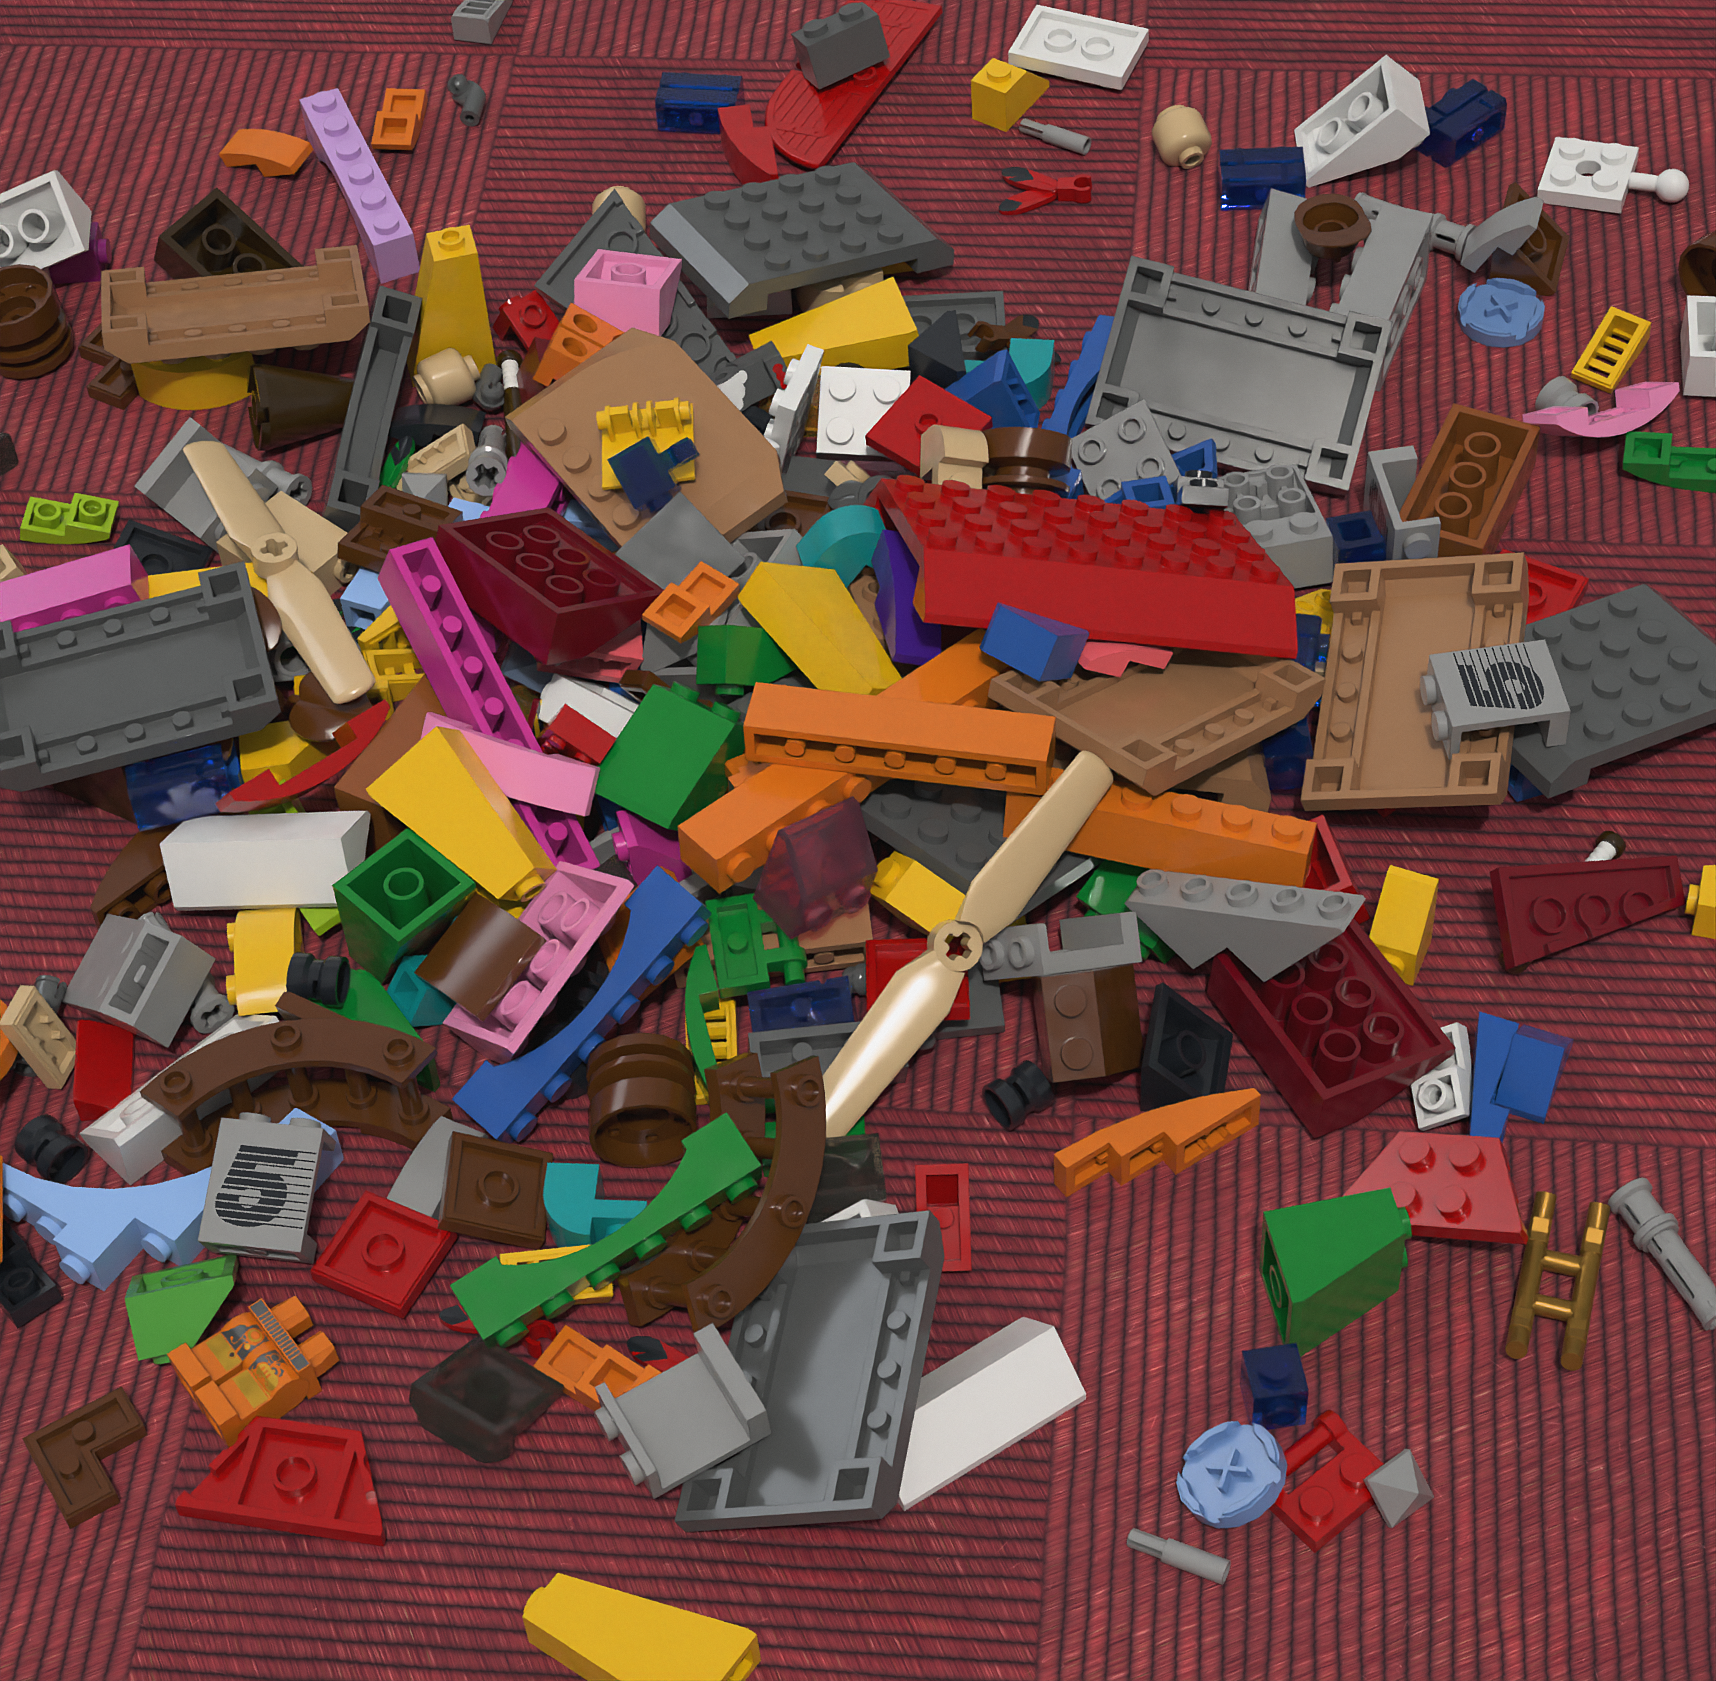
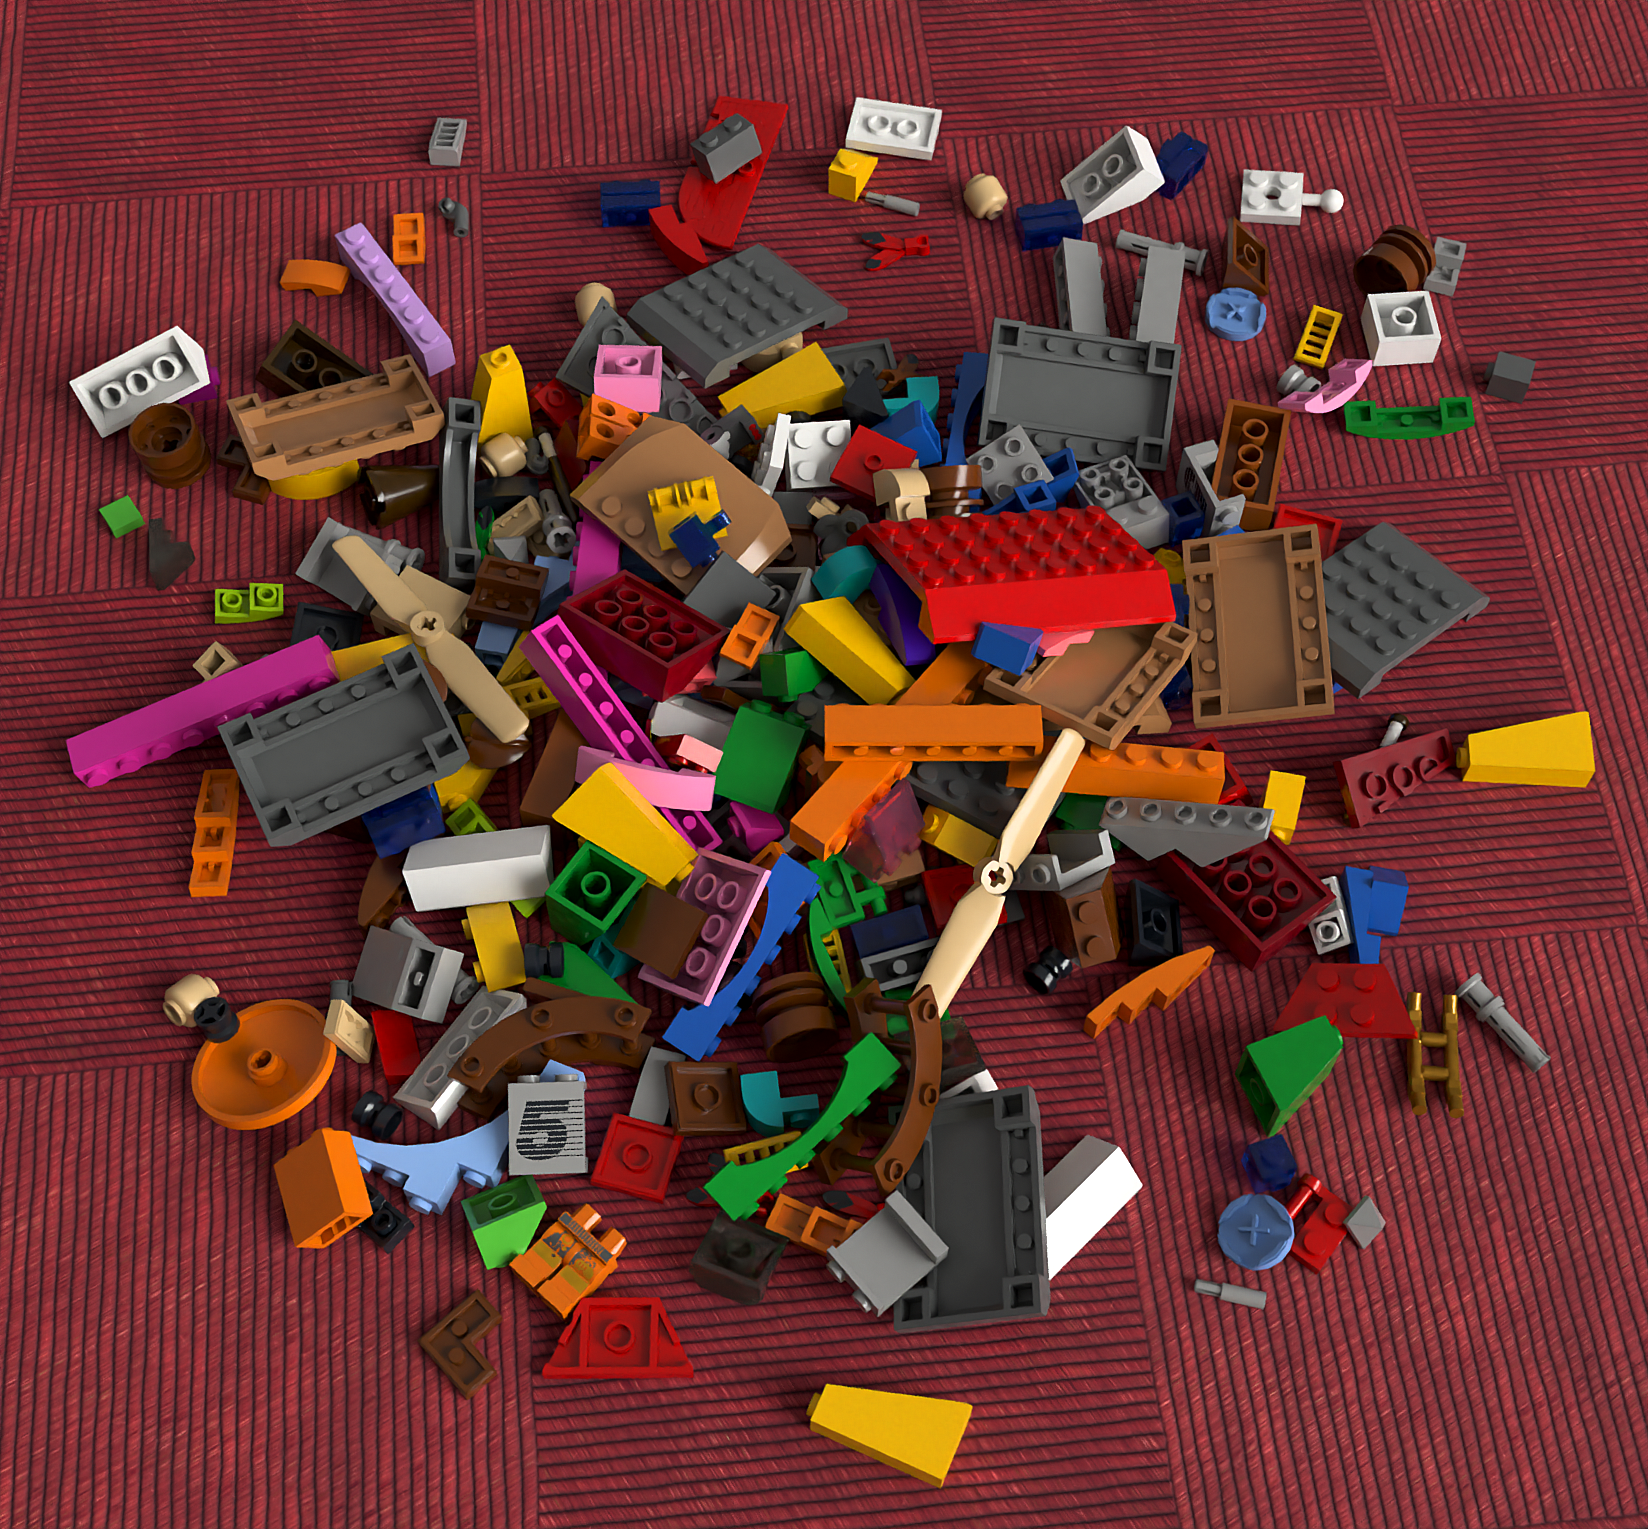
camera: 15 degrees left, 10 degrees up
(265, 791) = (523, 767): red slope -> none
(947, 1195) = (1021, 1065): red slope -> none
(1200, 490) = (1073, 493): slope -> none
(1331, 225) = (1115, 265): reddish brown piece -> none
(1495, 690) = (1316, 632): light grey panel -> none
(1504, 229) = (1235, 255): light grey slope -> none

